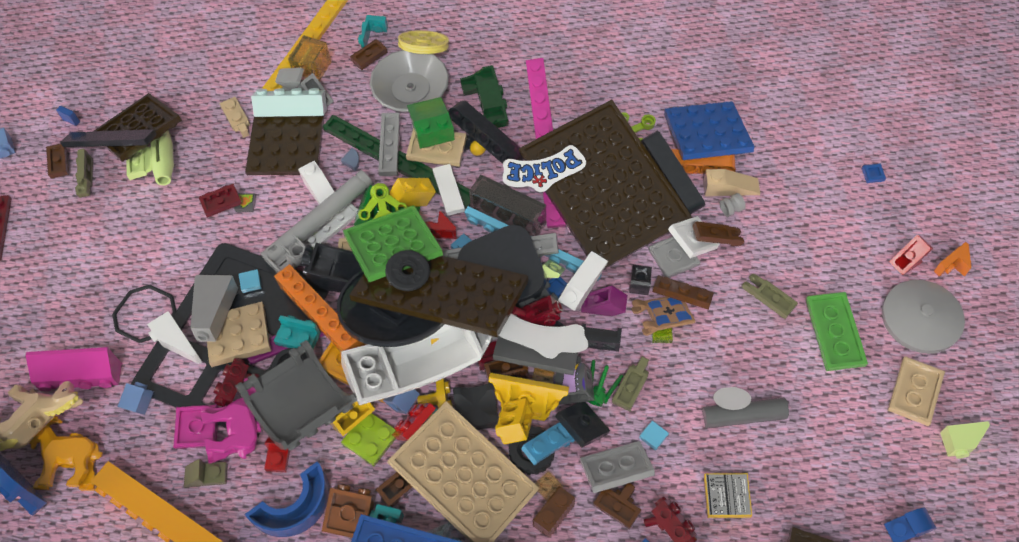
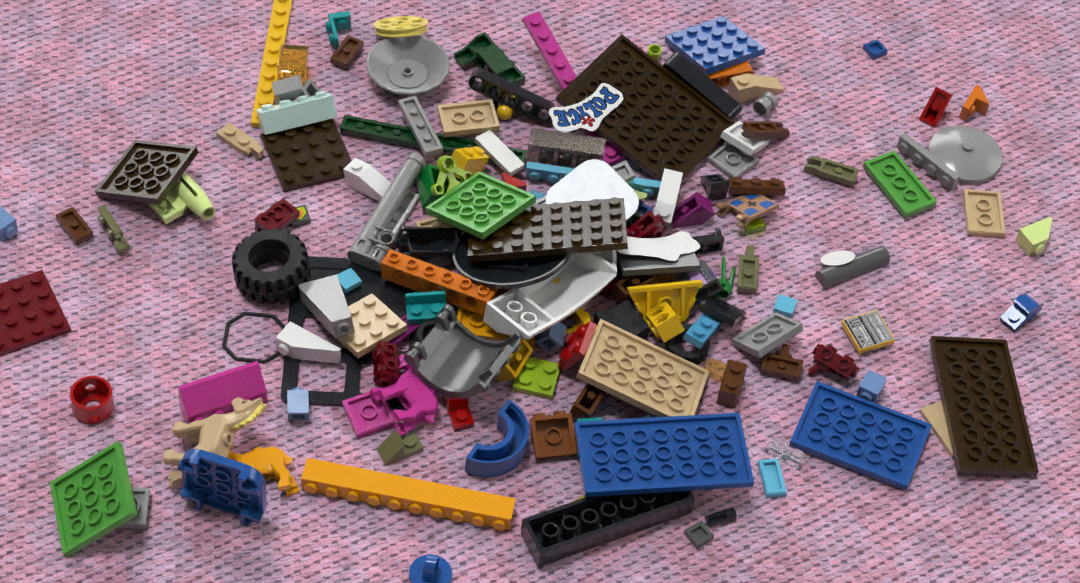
camera: 30 degrees left, 10 degrees down
(68, 115) = (59, 181): blue tile -> none
(108, 138) = (130, 187): black tile -> none
(174, 233) = (265, 247): none -> black tyre
(351, 159) = (384, 152): sand blue tile -> none
(407, 282) = (508, 226): black wheel -> none
(431, 122) = (455, 95): green slope -> none
(878, 316) = (928, 162): none -> light grey plate

